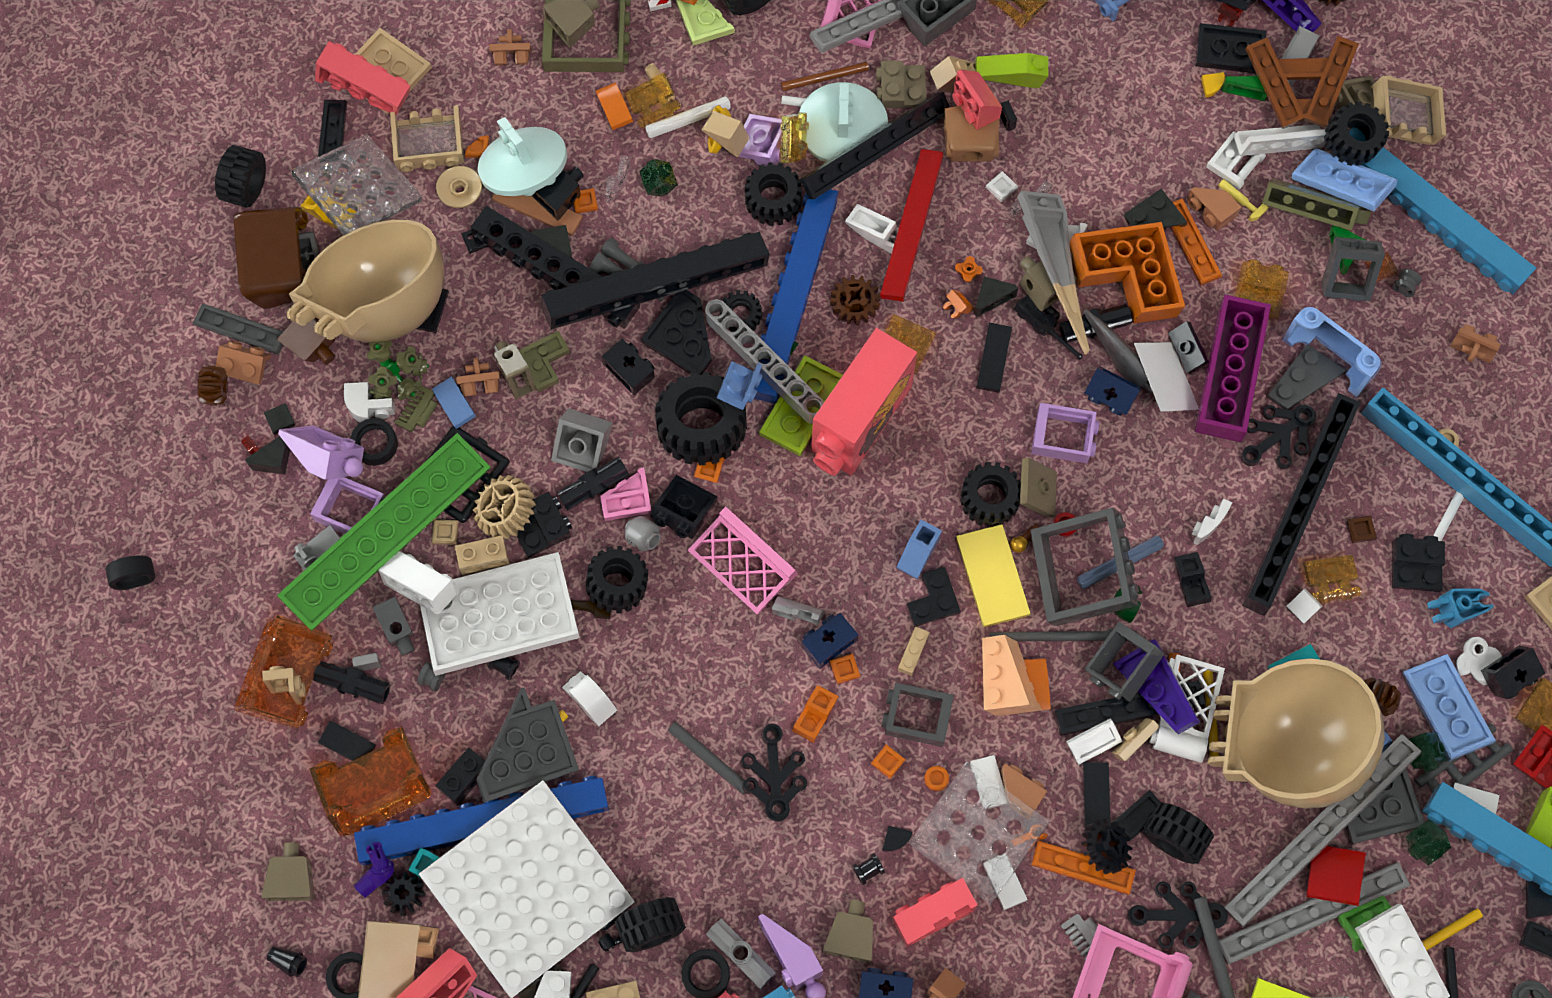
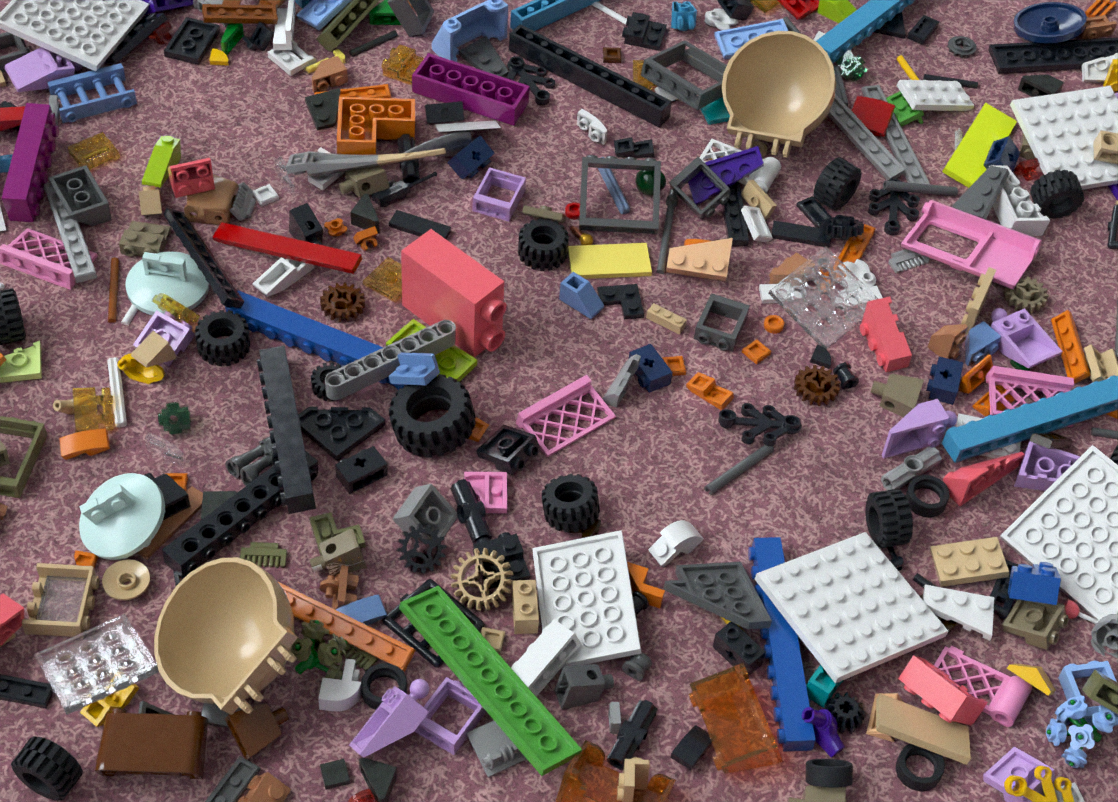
camera: 85 degrees left, 20 degrees down
(309, 883) = (829, 773): none -> black tyre
(439, 377) = (351, 630): none -> orange tile
(518, 300) = (265, 551): none -> olive piece
(534, 663) = (638, 578): none -> orange slope
(535, 442) = (416, 538): none -> black gear
(642, 533) = (527, 482): light grey head -> none
(857, 832) = (816, 385): none -> reddish brown gear
(957, 232) = (305, 225): none -> black torso
(978, 171) = (243, 203): none -> light grey piece
(1039, 870) = (861, 271): none -> white plate
(1253, 118) = (260, 37): none -> black bracket
(1292, 244) = (371, 44): none -> pearl dark grey bar
(1330, 573) = (655, 71): none -> dark grey window

